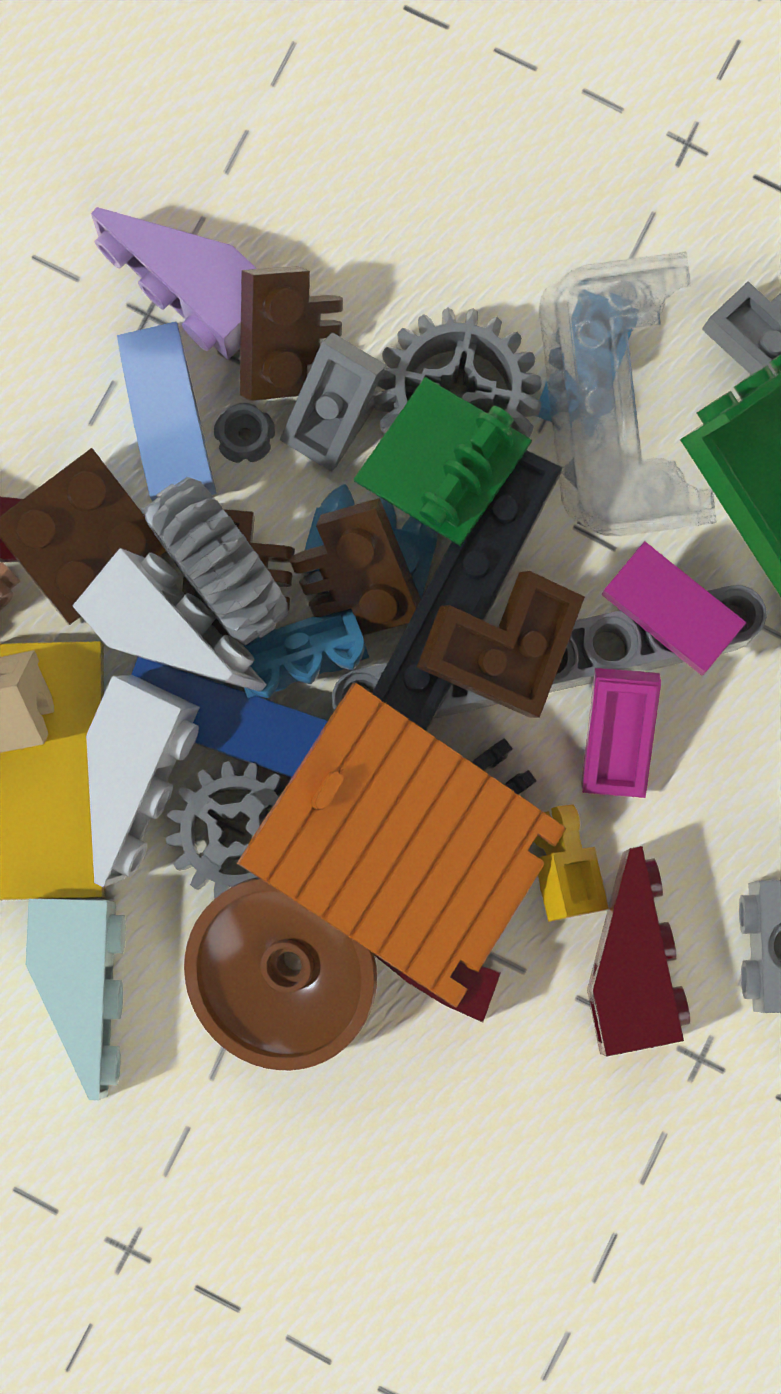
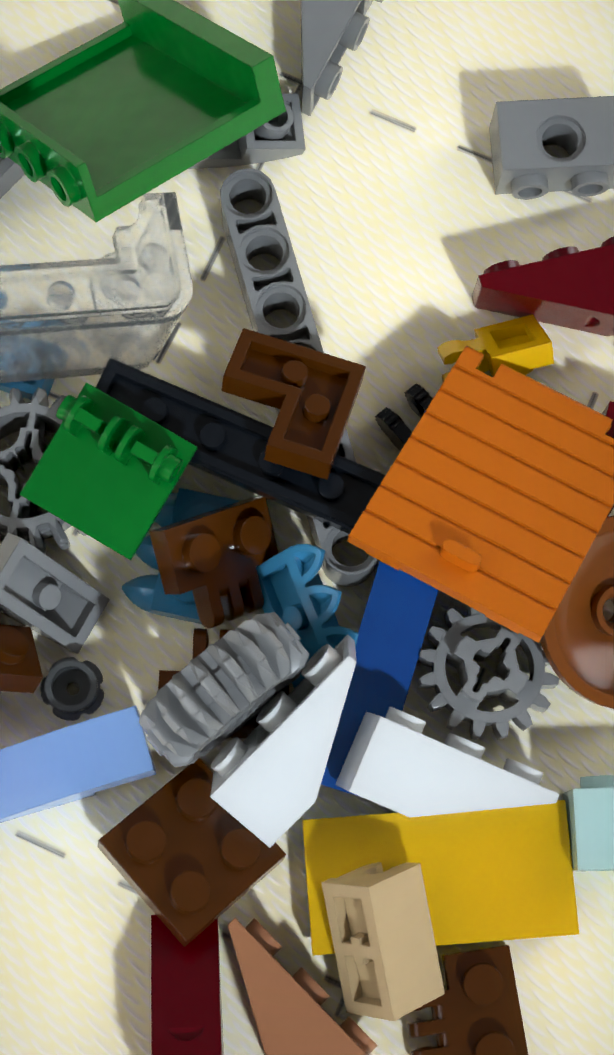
camera: 100 degrees left, 5 degrees down
(620, 732) = (366, 302): dark pink tile -> none
(673, 608) = (248, 249): dark pink tile -> none

